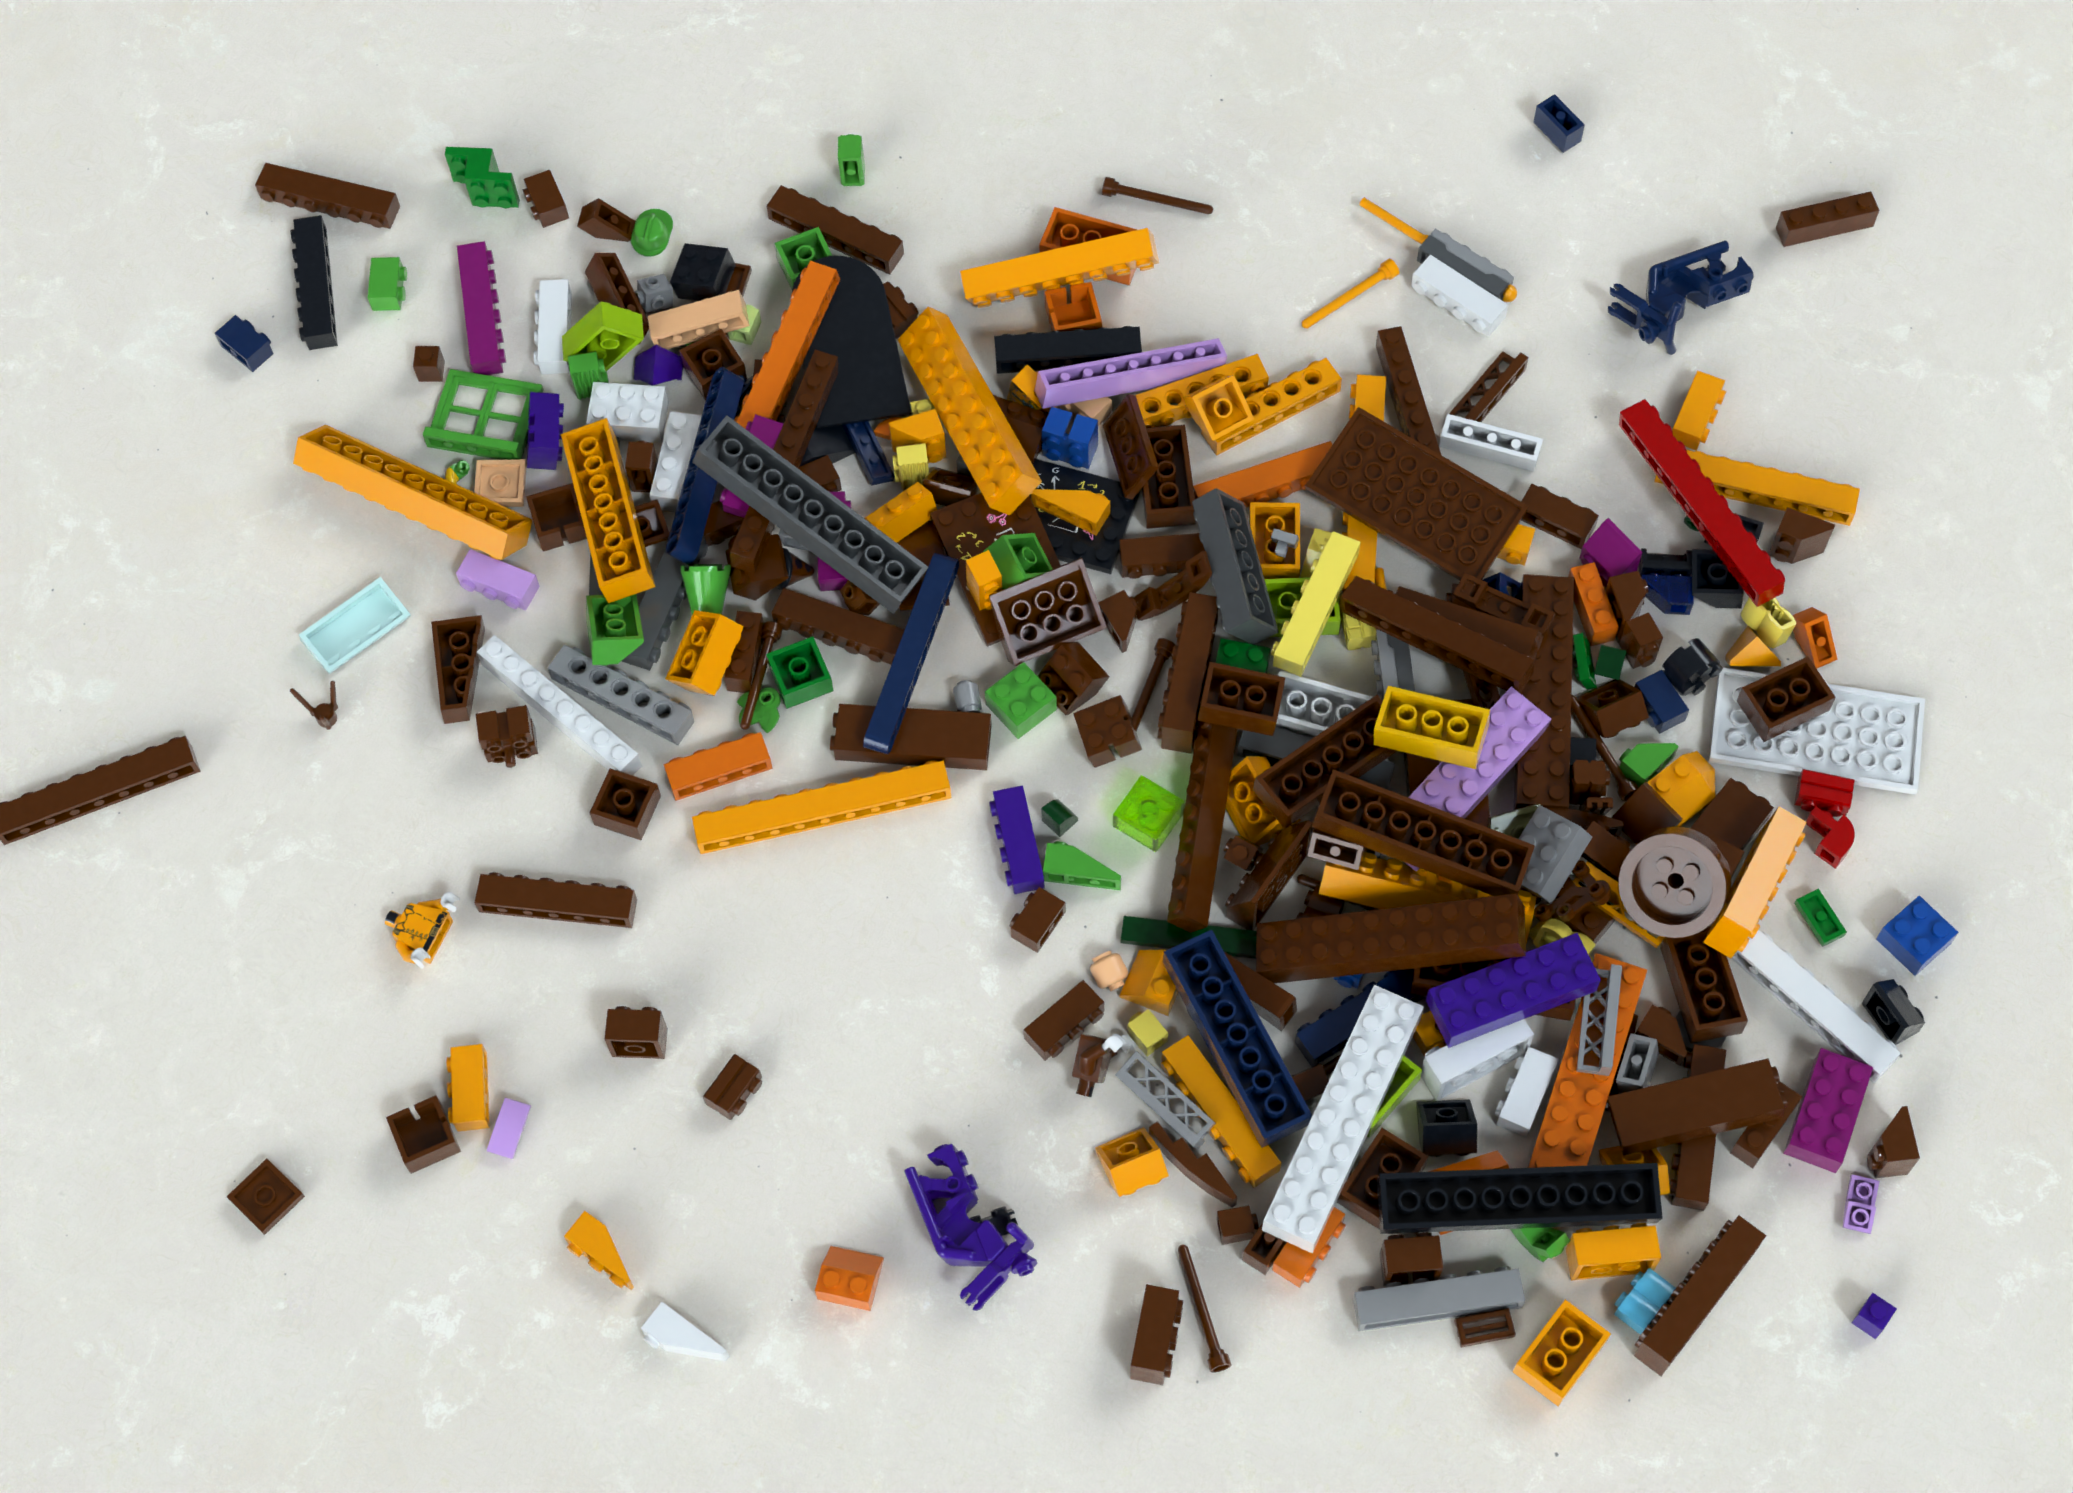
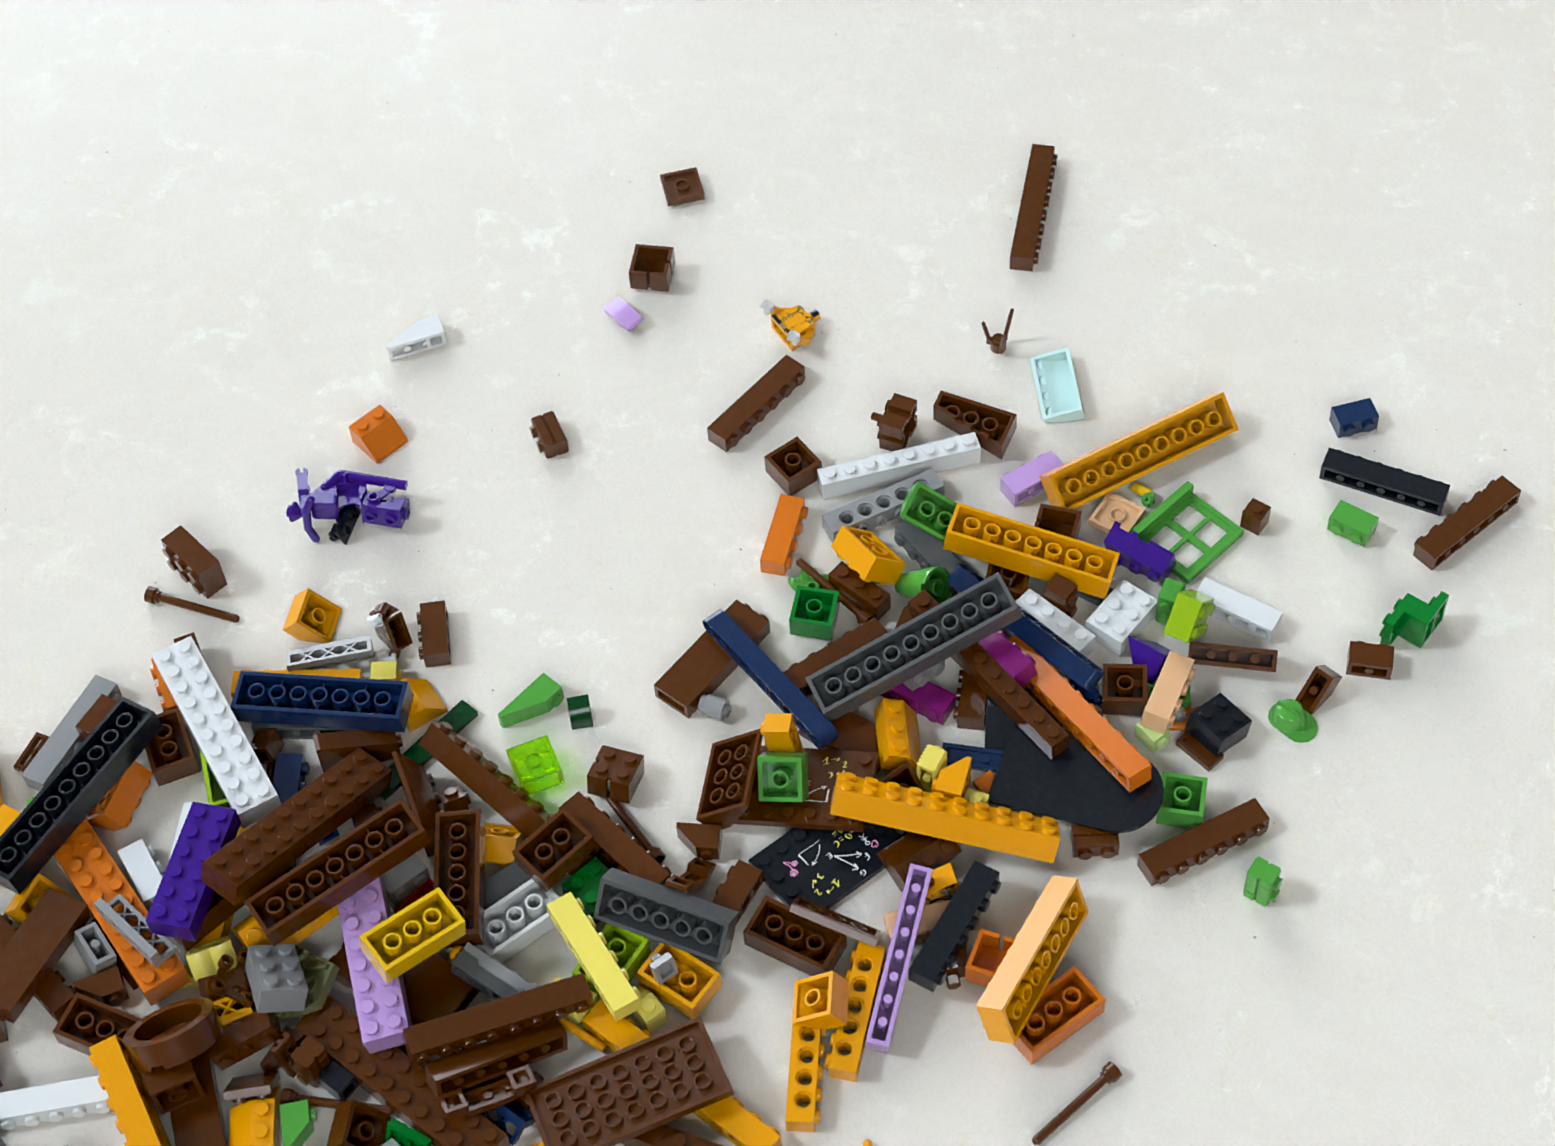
camera: 125 degrees right, 10 degrees down
(468, 1087) = (666, 306): light orange brick -> none
(480, 308) = (1288, 571): magenta brick -> none
(594, 1241) = (505, 324): light orange slope -> none
(636, 1033) = (623, 396): reddish brown brick -> none
(654, 293) = (1222, 681): light grey brick -> none
(821, 806) = (703, 579): light orange brick -> none
(1018, 840) = (585, 678): dark purple brick -> none
(1020, 700) = (686, 737): bright green brick -> none
(1037, 919) = (516, 657): reddish brown brick -> none
(1072, 676) = (679, 781): reddish brown slope -> none
(1073, 448) = (877, 888): blue piece -> none
(1074, 506) = (810, 860): light orange slope -> none
(1109, 971) = (445, 678): light nougat head -> none
(1200, 1170) = (271, 651): reddish brown slope -> none
(1236, 1224) = (220, 651): reddish brown brick -> none
(1269, 479) = (740, 1008): orange brick -> none
(1447, 1127) = (163, 809): black slope -> none

